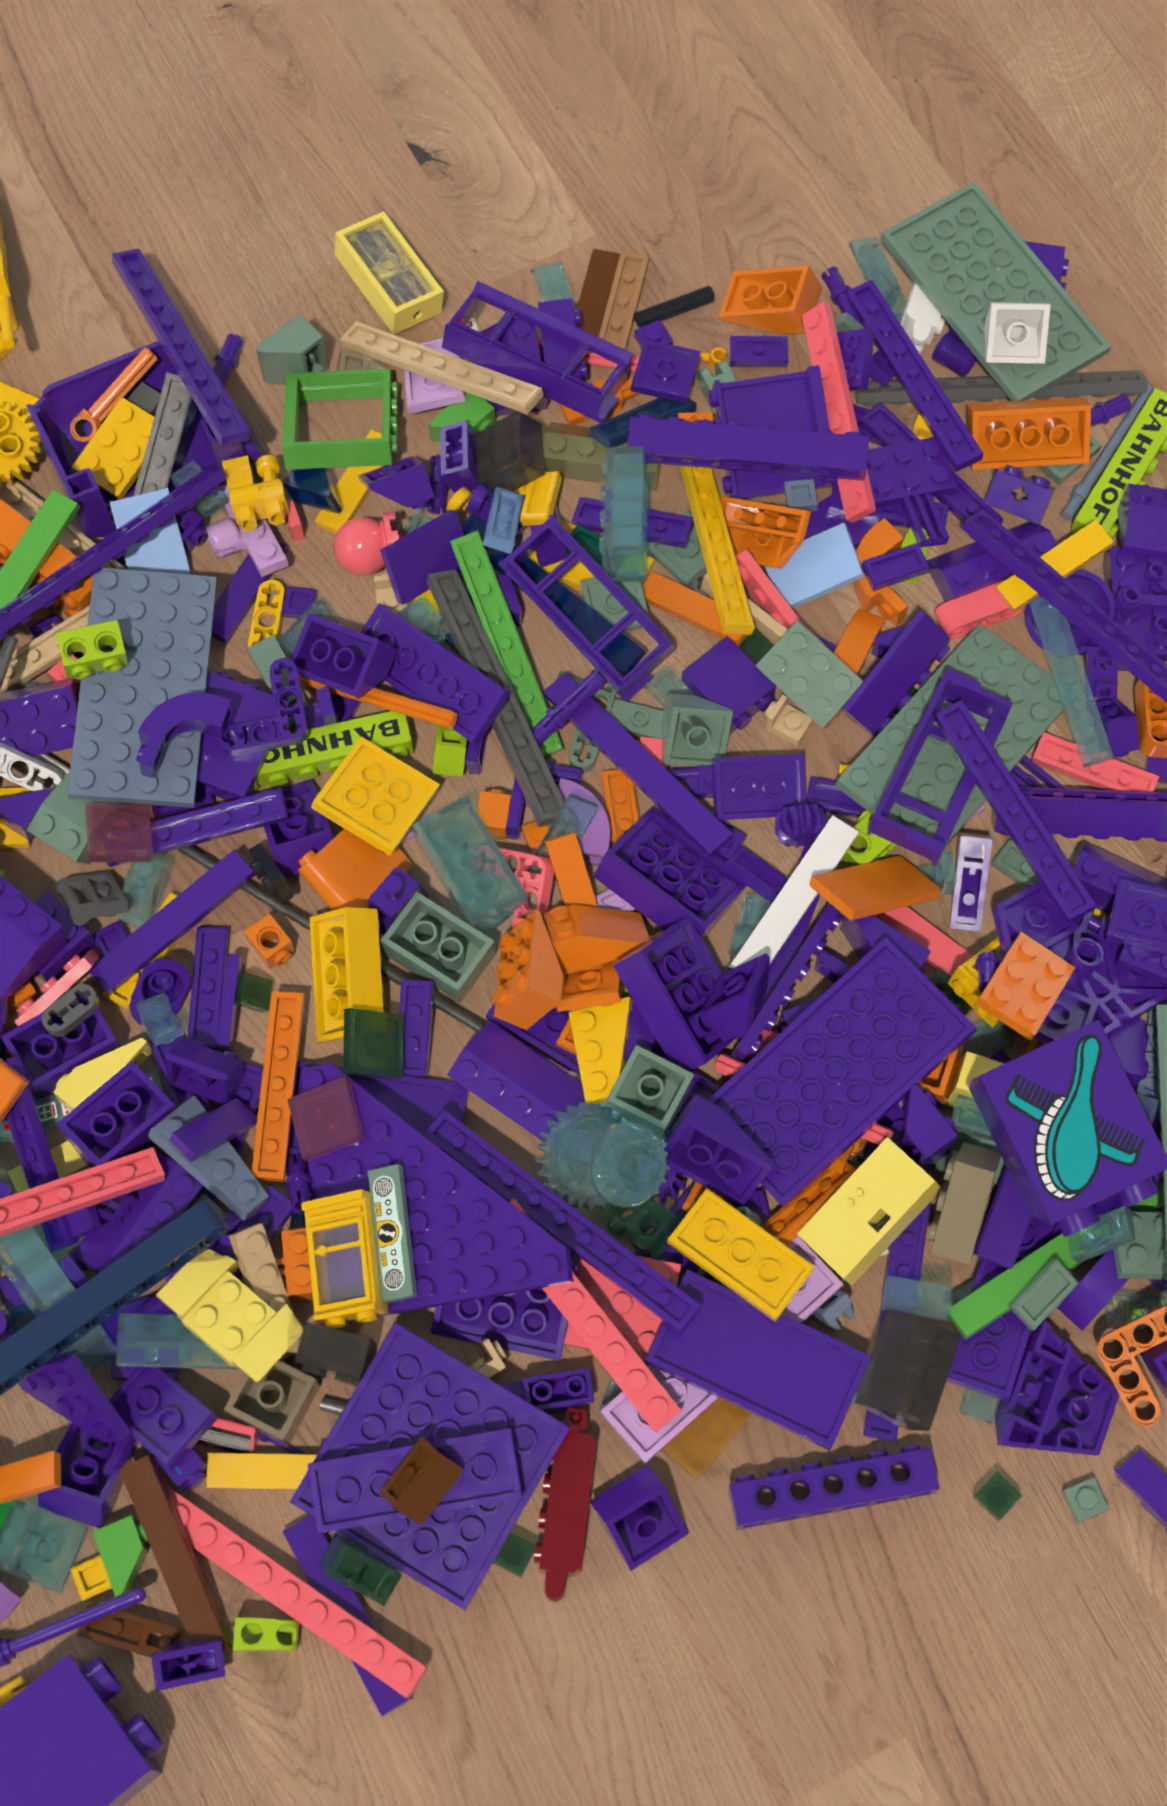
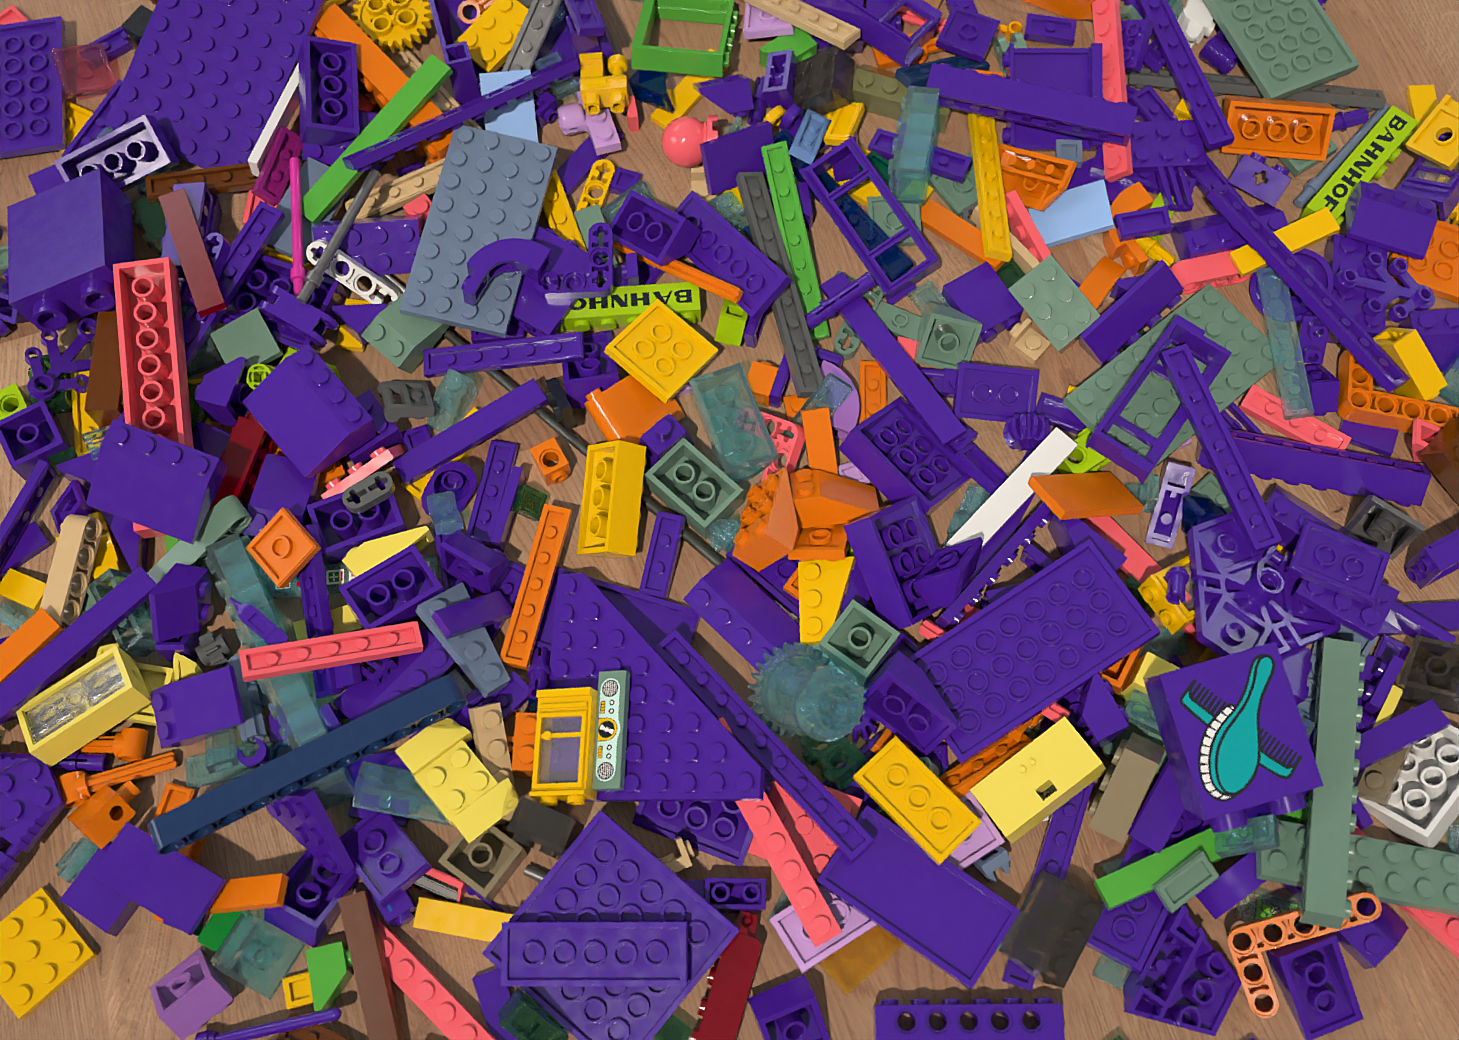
camera: 10 degrees right, 0 degrees up
(90, 642) = (440, 183): lime brick -> none
(118, 833) = (437, 349): clear pink tile -> none
(231, 653) = (560, 214): none -> yellow tile
(325, 1119) = (571, 620): clear pink tile -> none
(373, 1044) = (623, 562): clear green tile -> none
(421, 1481) = (598, 956): reddish brown panel -> none
(479, 994) = (722, 534): none -> clear light blue gear
(910, 592) = (1155, 250): none -> yellow axle
(918, 1298) = (1070, 865): clear light blue plate -> none
(1002, 885) = (1197, 511): none -> clear blue slope
(1016, 332) = (1279, 39): white slope -> none
(1025, 986) = (1209, 602): orange plate -> none

